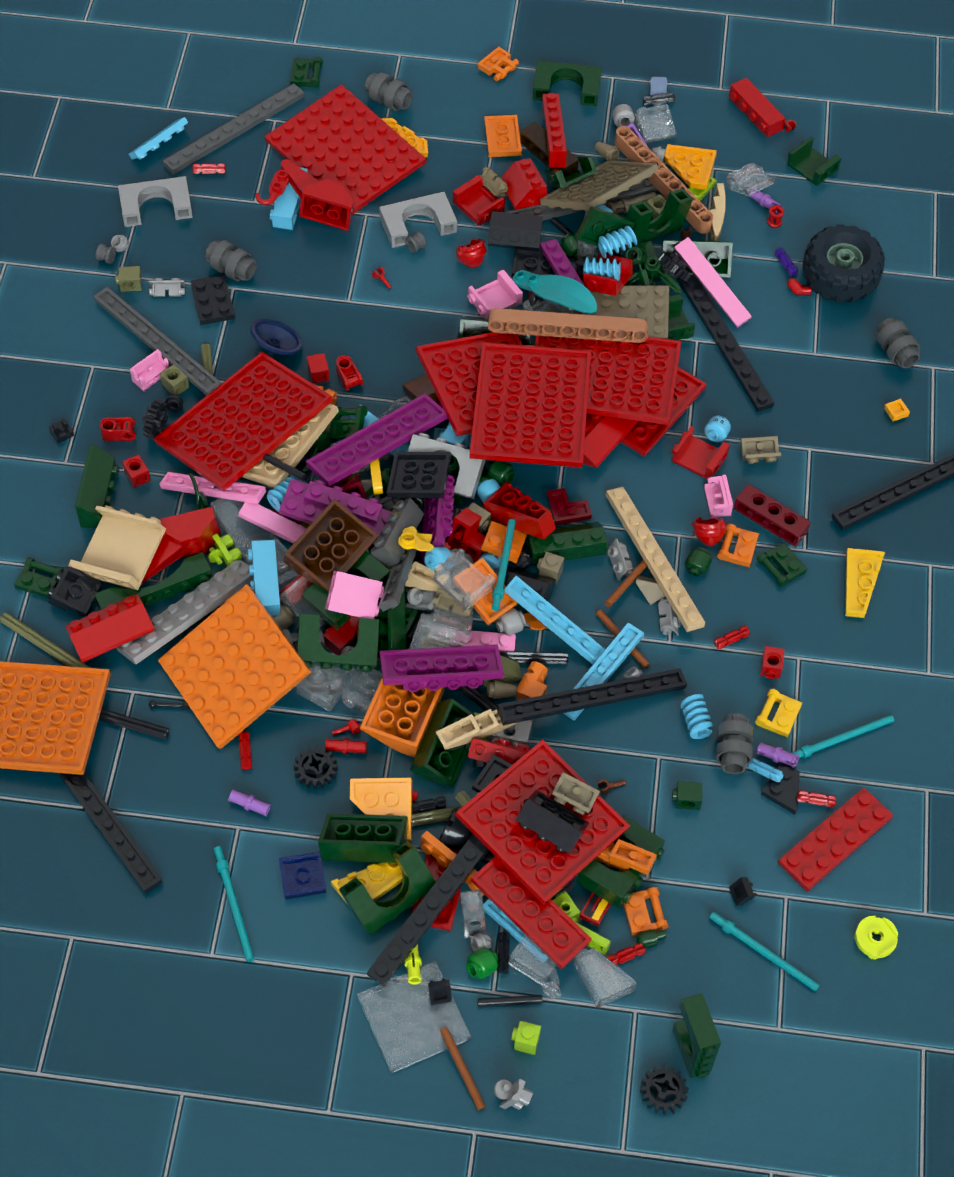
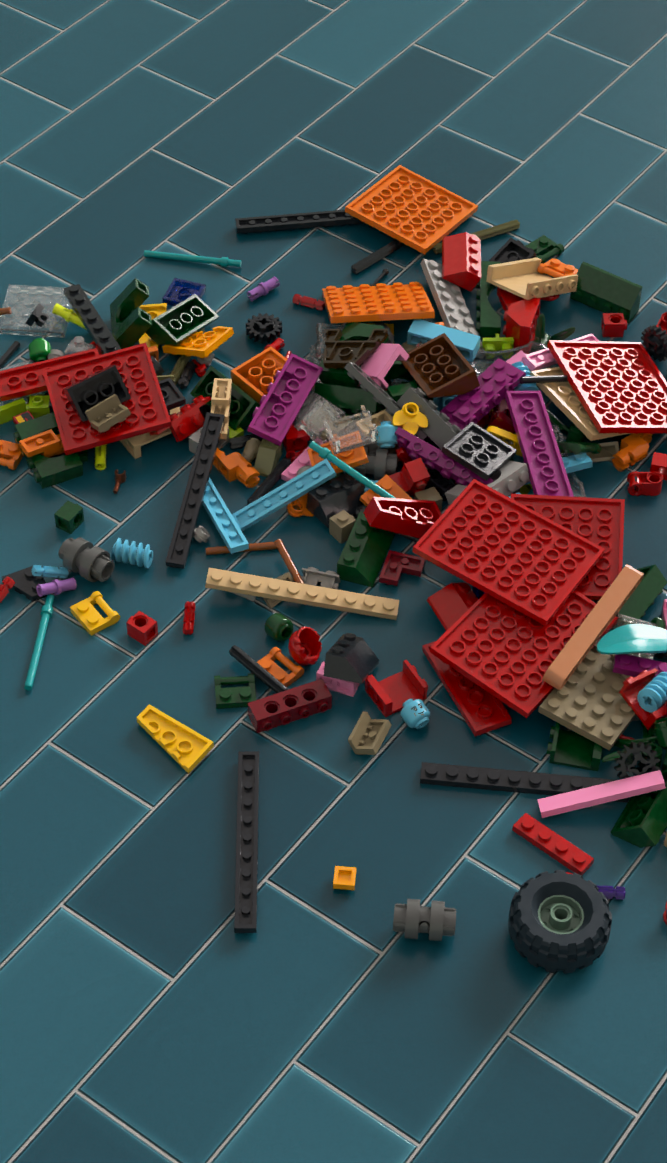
camera: 120 degrees right, 10 degrees down
(67, 544) = (556, 268): none -> orange plate
(355, 629) = (340, 353): none -> dark brown wing
(706, 486) = (350, 659): none -> black slope
(755, 552) = (257, 669): none -> black axle
(767, 305) = (553, 844): none -> red plate

